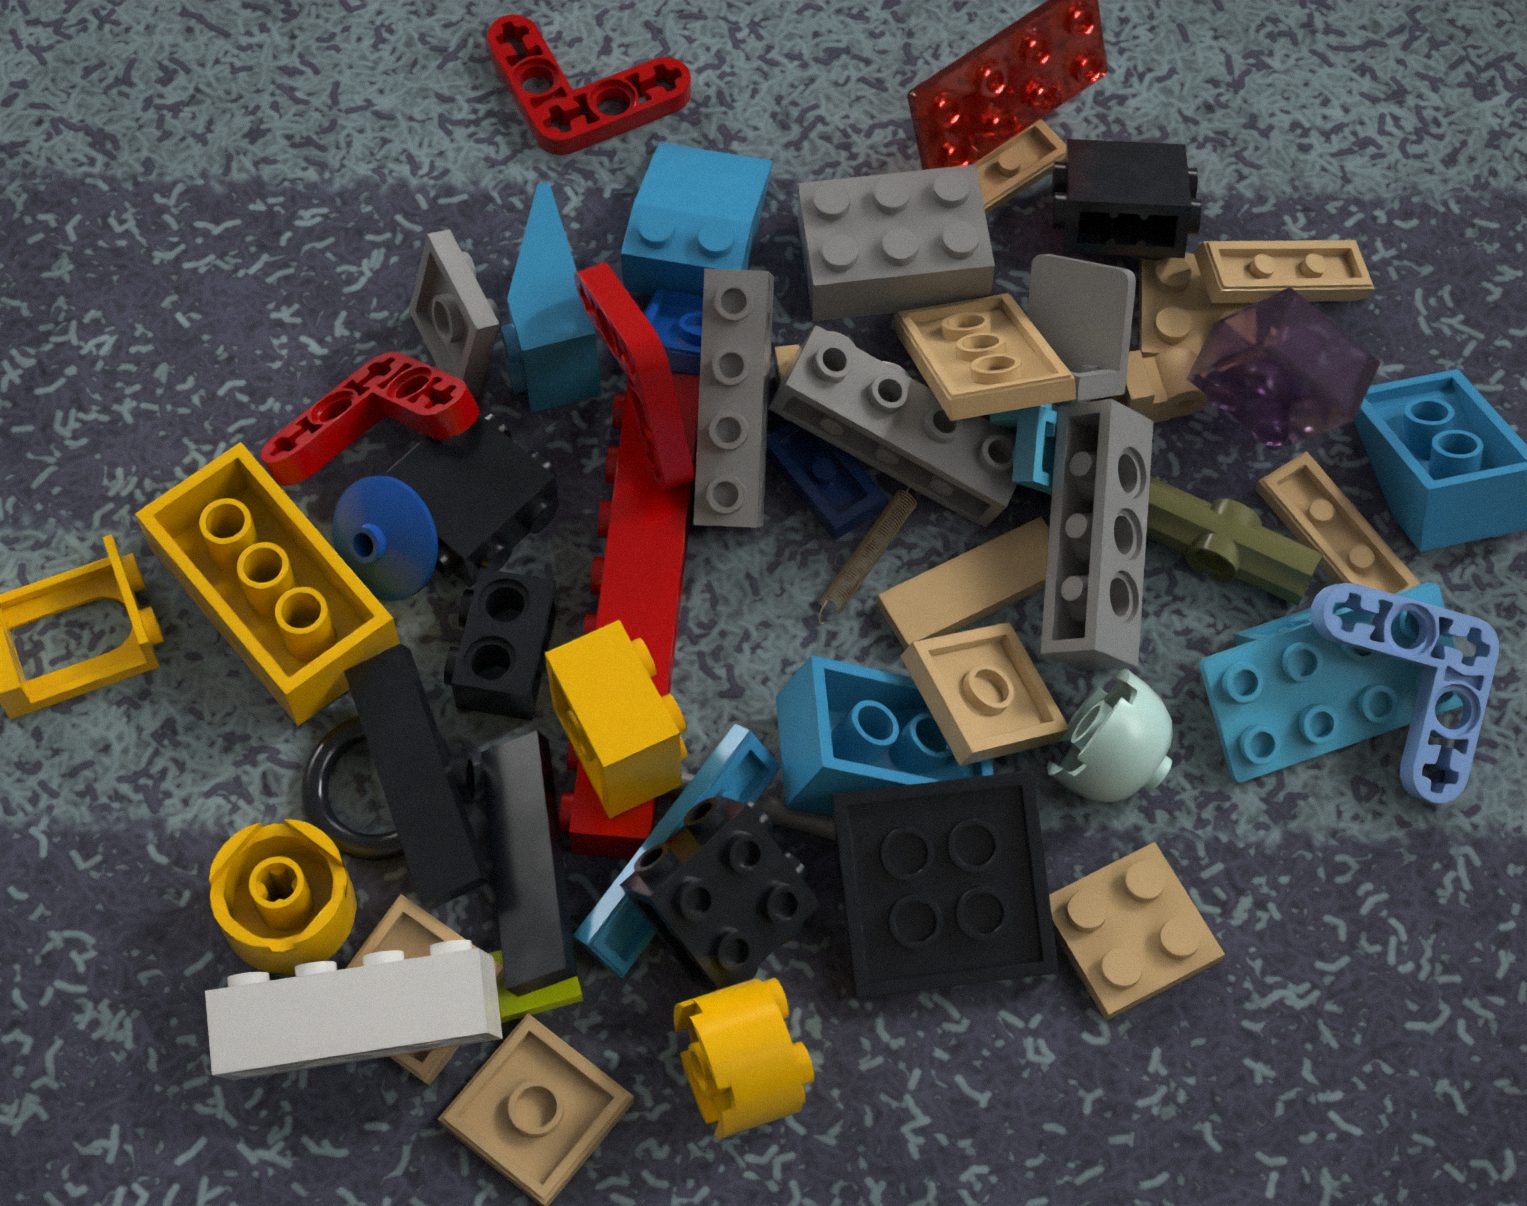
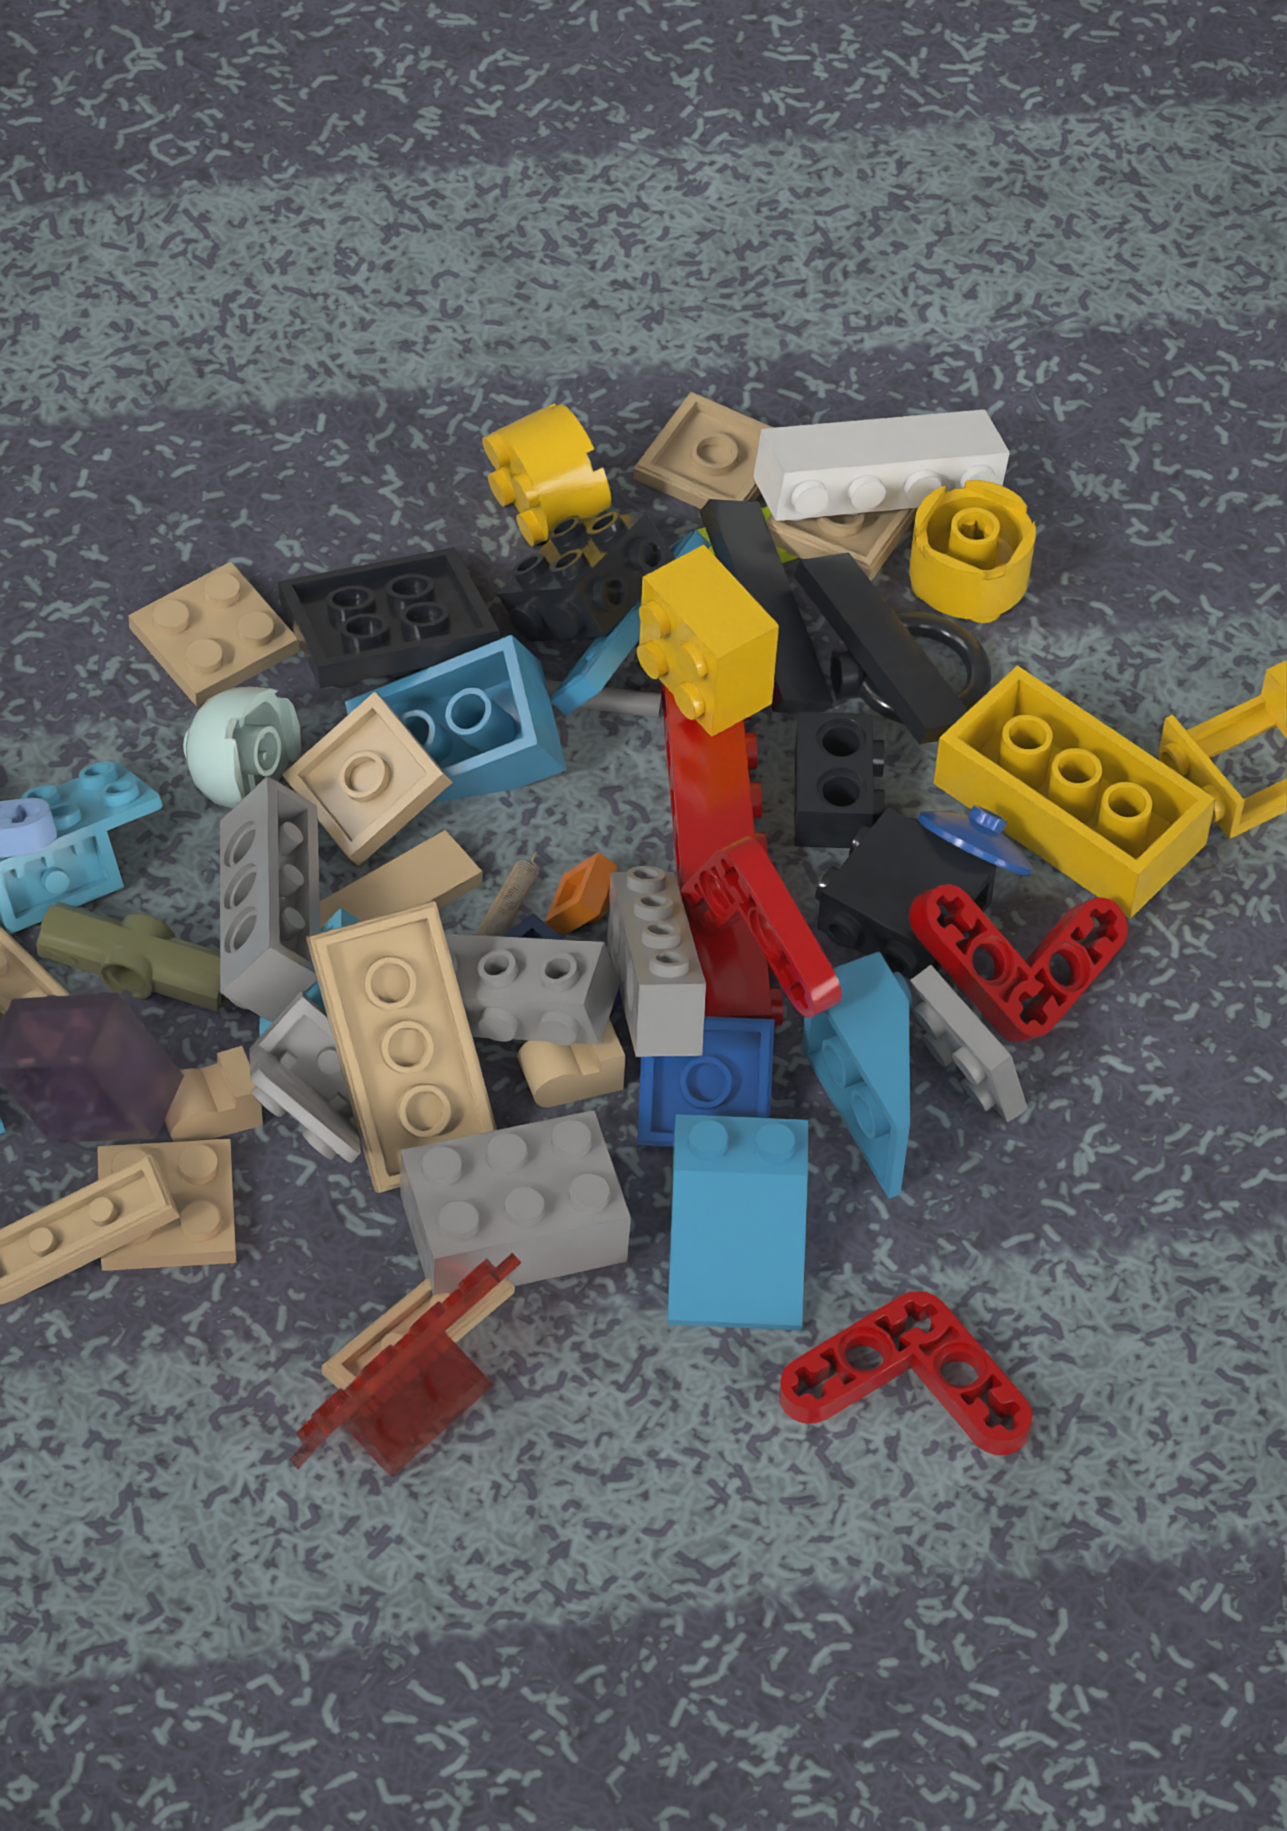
camera: 170 degrees right, 10 degrees down
(784, 548) = (581, 895): none -> orange plate
(1125, 199) = (260, 1270): black brick -> none

